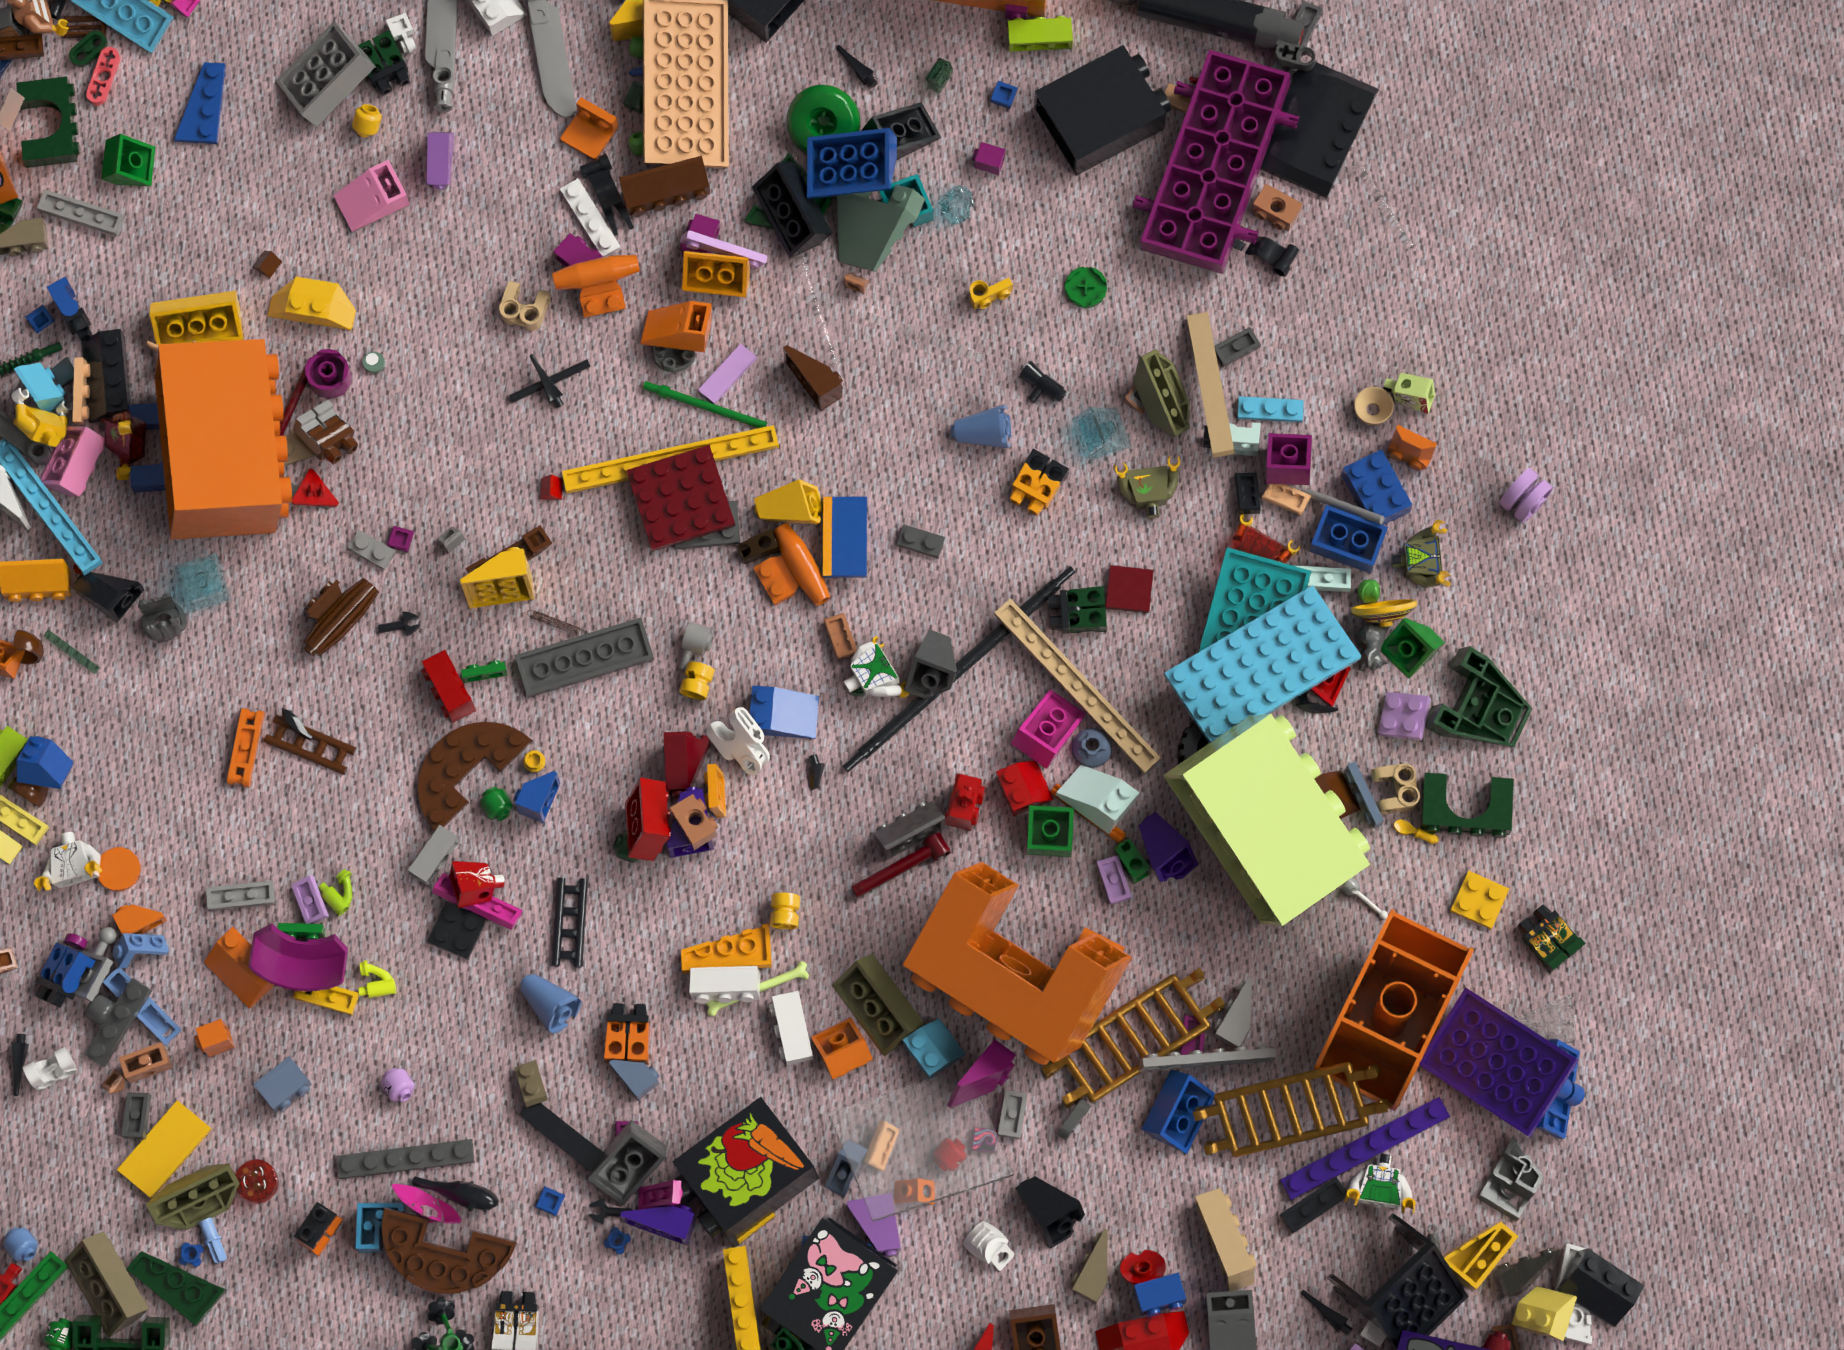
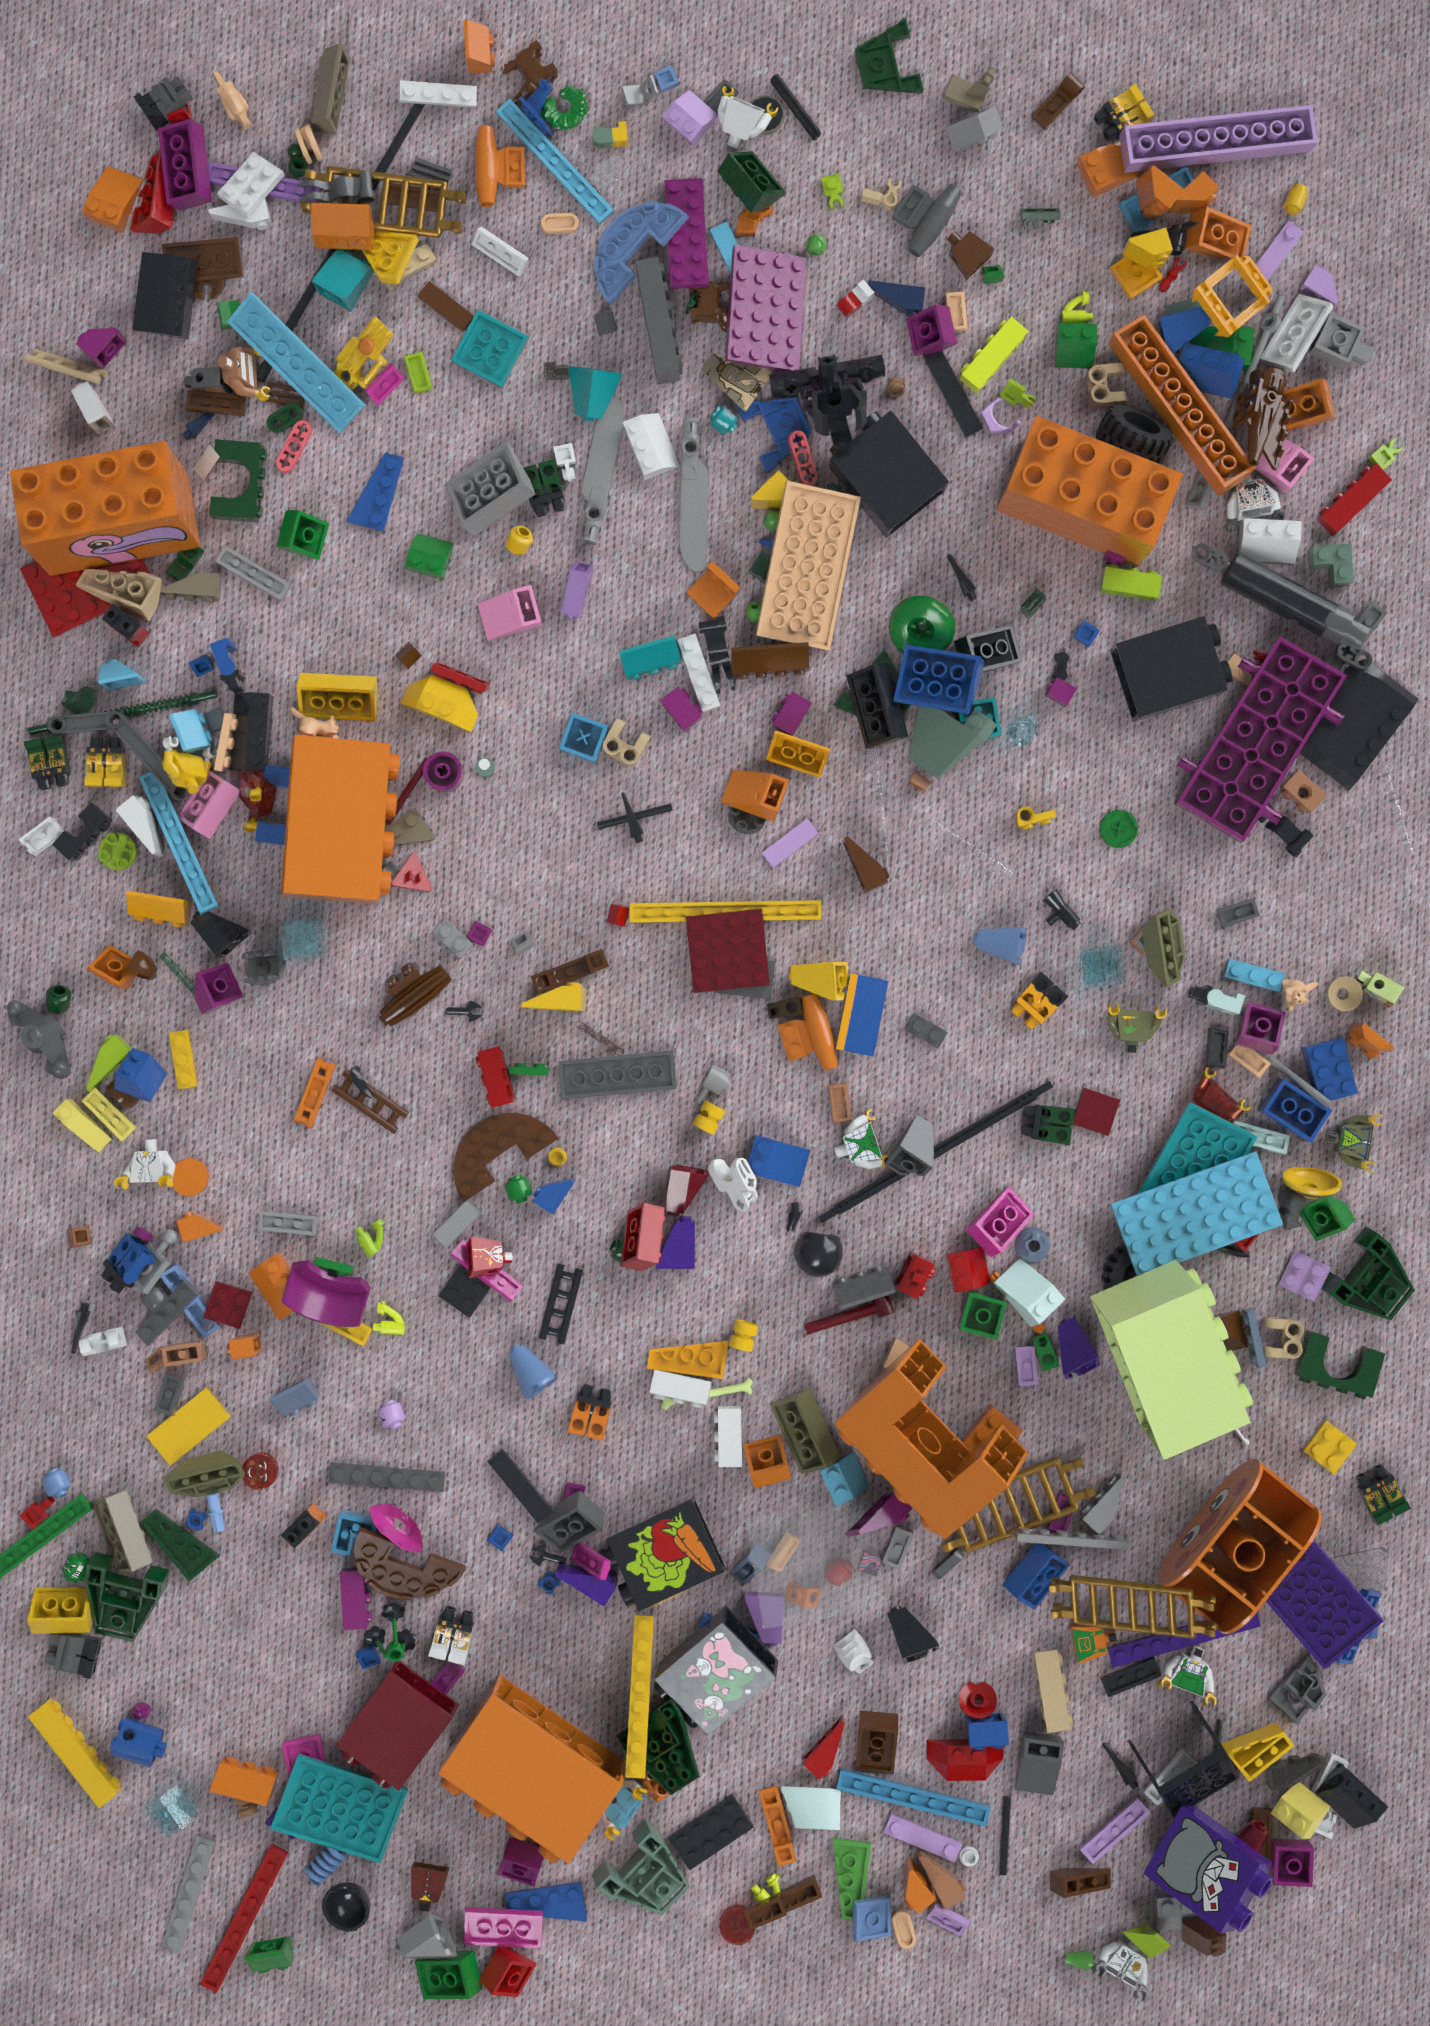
camera: 10 degrees right, 15 degrees up
(89, 741) = (183, 1059): none -> yellow plate
(113, 656) = (216, 988): none -> magenta slope
(140, 944) = (195, 1250): medium blue bracket -> none
(186, 1000) = (227, 1304): none -> dark red plate
(271, 158) = (429, 556): none -> green slope
(310, 900) = (345, 1240): lavender plate -> none
(325, 432) = (432, 826): hips -> none
(328, 275) = (460, 678): none -> red plate
(393, 1304) = (354, 1600): none -> magenta brick
(463, 1193) = (429, 1517): black piece -> none
(476, 308) = (583, 738): none -> dark azure brick
(531, 1083) = (502, 1437): dark tan plate -> none
(533, 210) = (650, 658): none -> teal slope
(598, 282) = (694, 738): orange plate -> none
(636, 1076) = (591, 1450): sand blue slope -> none
(665, 392) = (733, 848): green bar -> none
(696, 834) = (682, 1265): nougat brick -> none
(698, 241) = (832, 743): lavender plate -> none
(716, 790) = (706, 1213): light orange plate -> none
(851, 806) = (818, 1253): none -> black cylinder
(984, 127) = (1062, 660): none -> black piece
(1077, 686) = (1032, 1191): tan plate -> none
(1094, 1276) = (935, 1698): dark tan slope -> none
(1210, 384) = (1208, 948): tan tile -> none
(1257, 1172) = (1090, 1642): none -> torso
(1320, 415) = (1296, 992): none -> light nougat animal
(1369, 591) = (1300, 1158): bright green piece -> none
(1405, 828) = (1281, 1371): yellow piece -> none

